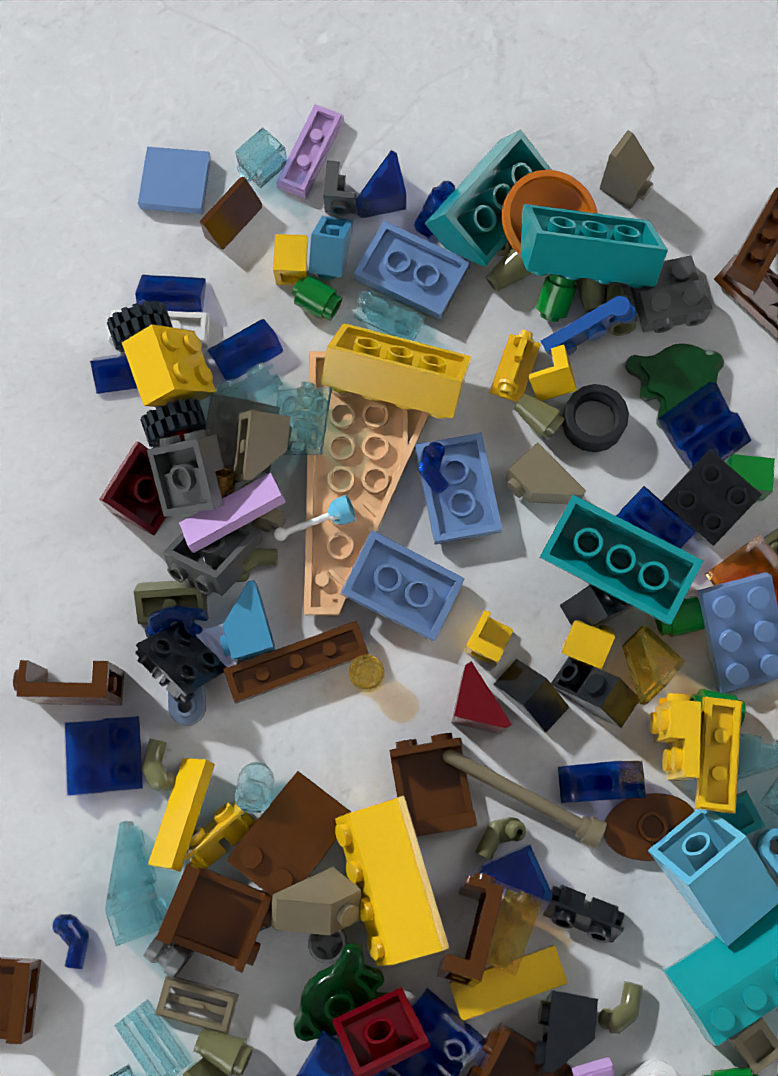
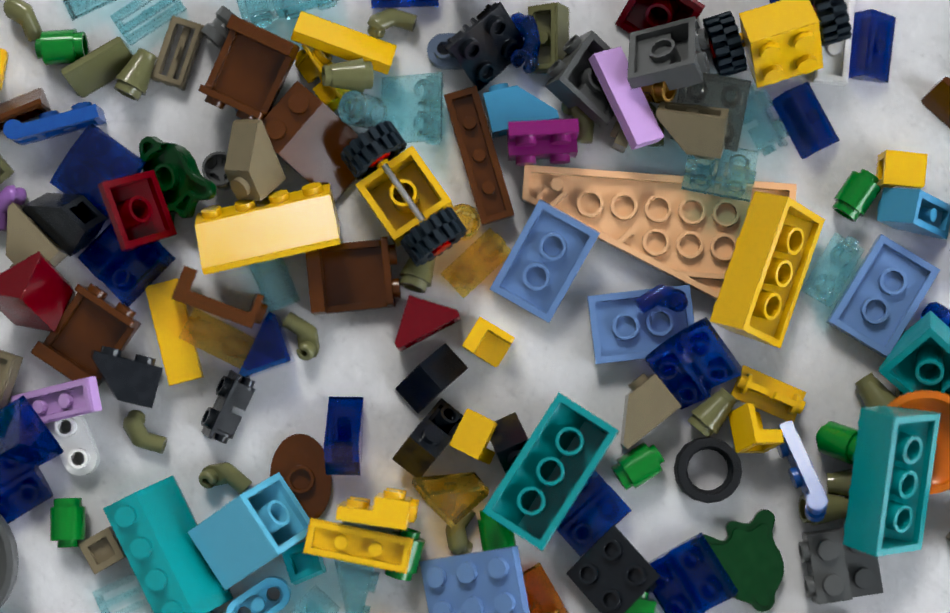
camera: 95 degrees right, 10 degrees up
(218, 802) = (349, 75): none -> olive cone
(250, 734) = (415, 106): none -> clear light blue hinge
(278, 592) = (542, 140): none -> magenta plate
(339, 511) = (621, 204): hinge -> none
(342, 735) = (403, 193): none -> brick
(407, 657) = (476, 262): none -> clear yellow hinge
(419, 716) = (417, 277): none -> olive cone
(448, 870) = (275, 283): none -> clear light blue tile
(492, 435) = (693, 363): none -> clear blue slope
(587, 829) = (303, 416): dark tan piece -> none
(599, 482) = (638, 466): none -> green brick
(656, 912) = (224, 474): none -> olive arm
(694, 655) = (457, 536): none -> olive arm

